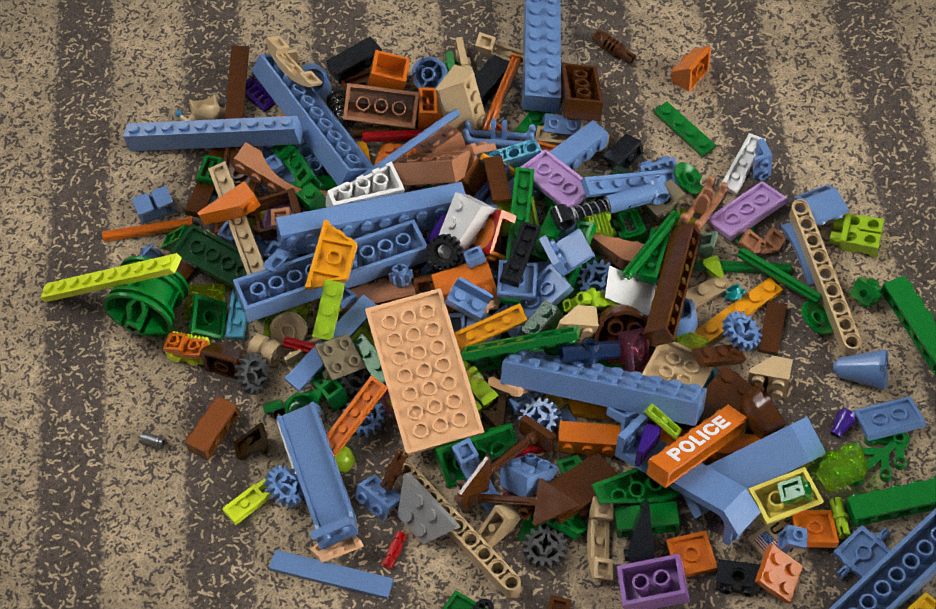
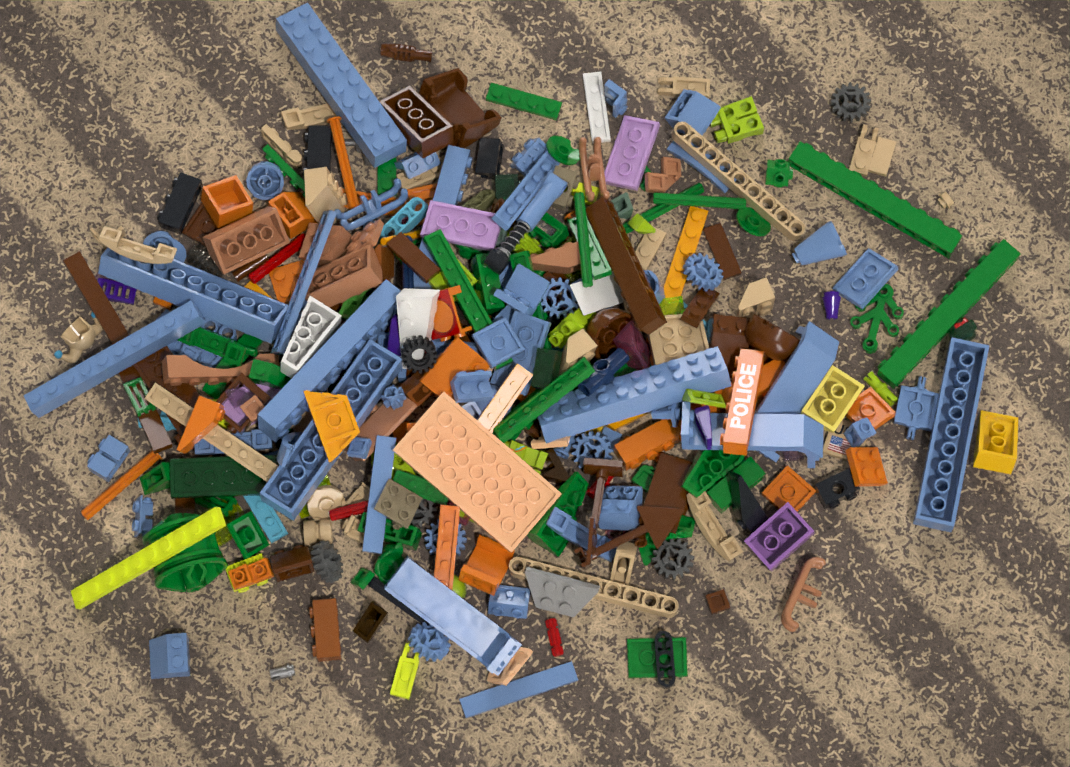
camera: 40 degrees left, 15 degrees up
(79, 375) = (169, 656): none -> medium blue slope
(210, 288) = (231, 501): none -> green tile
(274, 202) = (237, 397): none -> clear purple tile
(328, 310) = (362, 469): lime plate -> none
(375, 456) = (486, 565): none -> orange panel
(394, 469) = (511, 572): reddish brown pin -> none
(474, 256) = (448, 344): medium blue tile -> none
(520, 254) = (487, 318): black tile -> none
(622, 100) = (448, 97): none -> reddish brown windscreen
(691, 68) = (492, 37): orange slope -> none
(734, 292) = (672, 238): teal plate -> none
(795, 490) = (840, 391): bracket -> none
(842, 466) = (859, 345): clear neon green slope -> none
(846, 191) = (680, 83): none -> tan hinge

